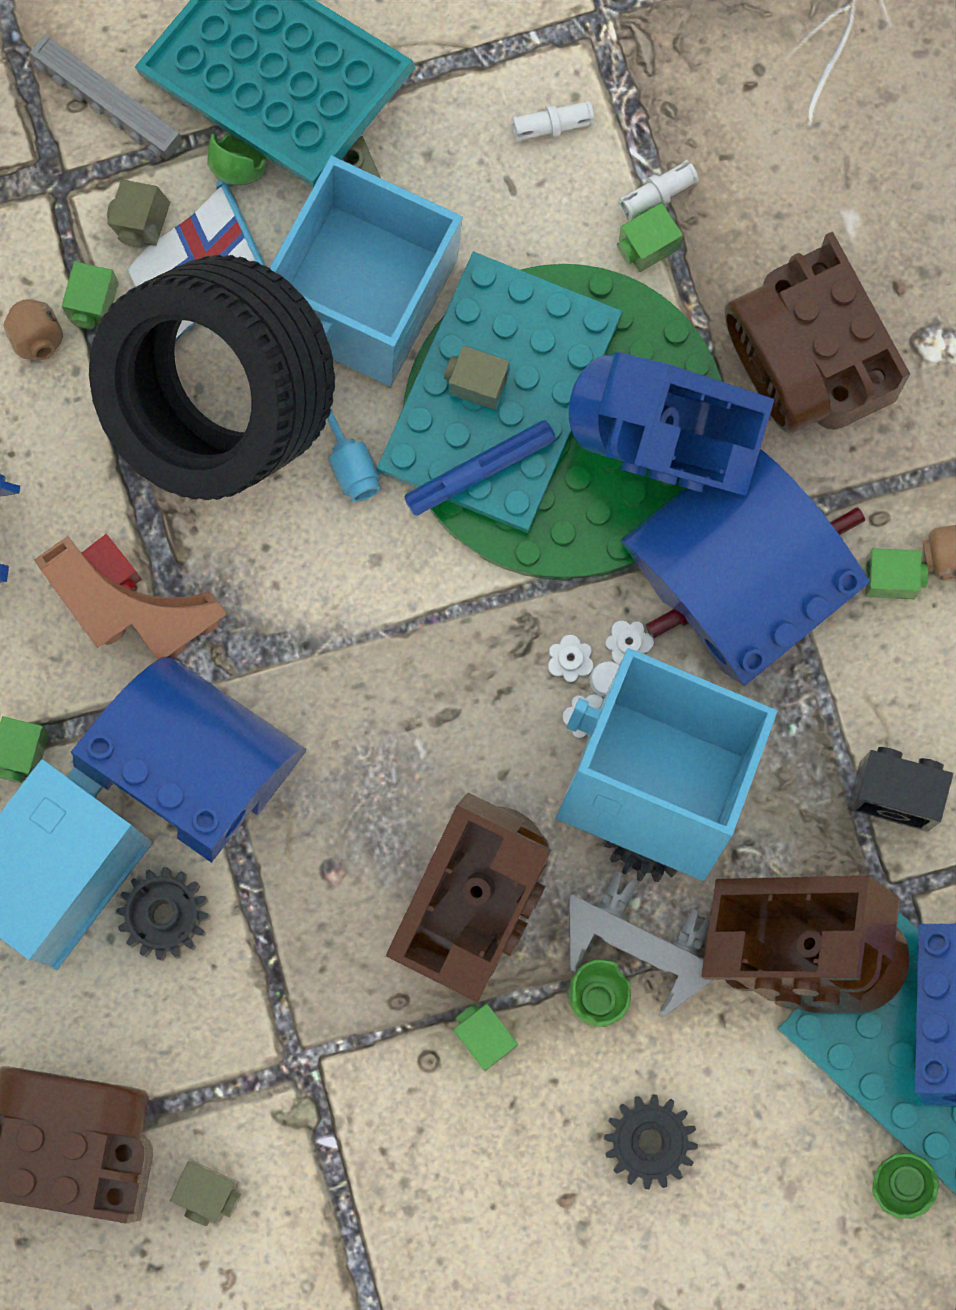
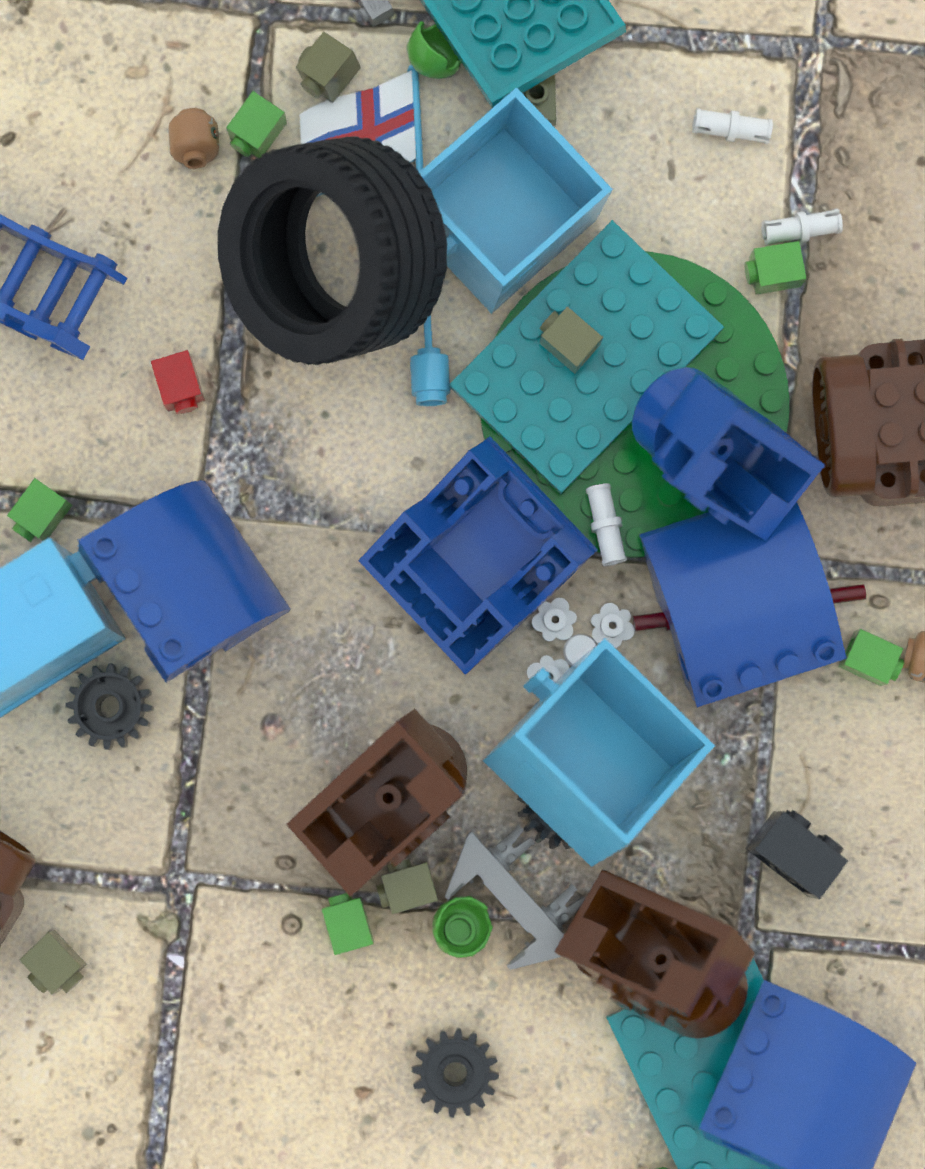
camera: 15 degrees right, 5 degrees up
(108, 608) = (163, 419): nougat arch -> none
(469, 622) = (477, 555): none -> blue slope
(479, 467) = (539, 421): blue axle -> none
(529, 975) = (406, 887): none -> olive brick
(584, 544) = (606, 524): none -> white pin

